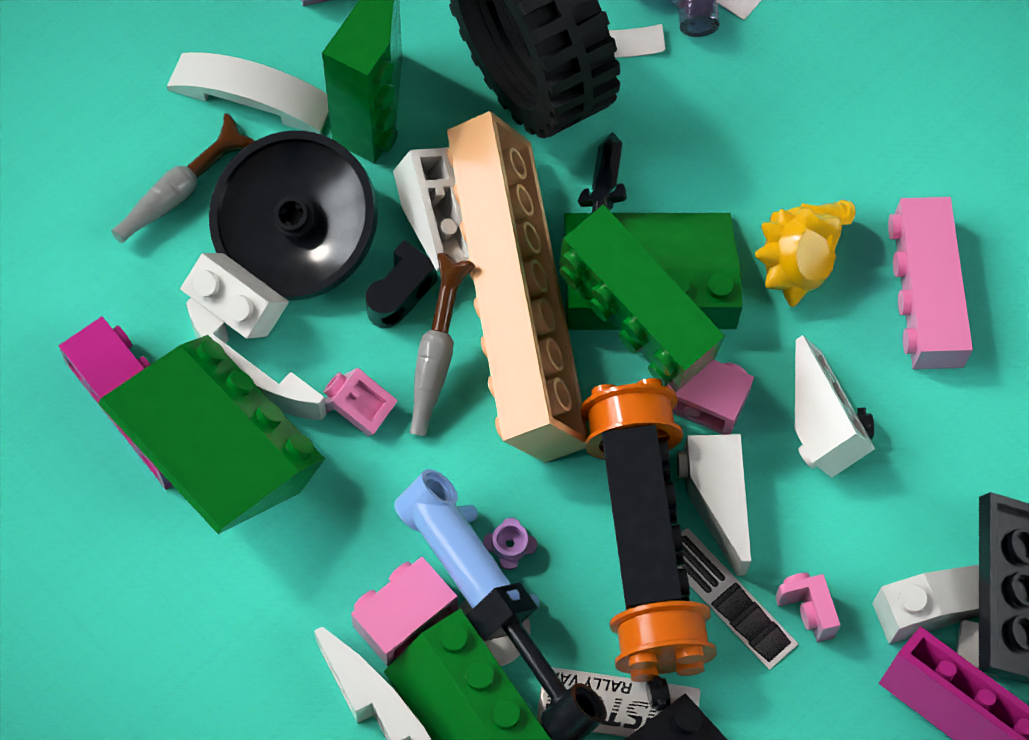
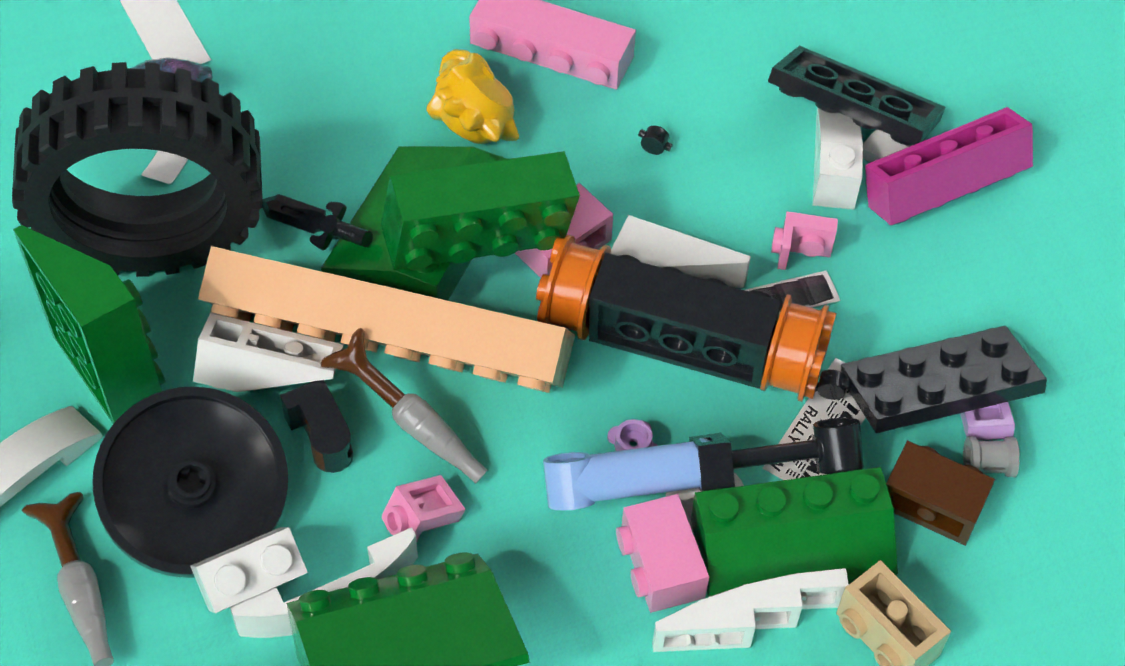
camera: 65 degrees left, 10 degrees down
(824, 415) = (648, 153): white slope -> none

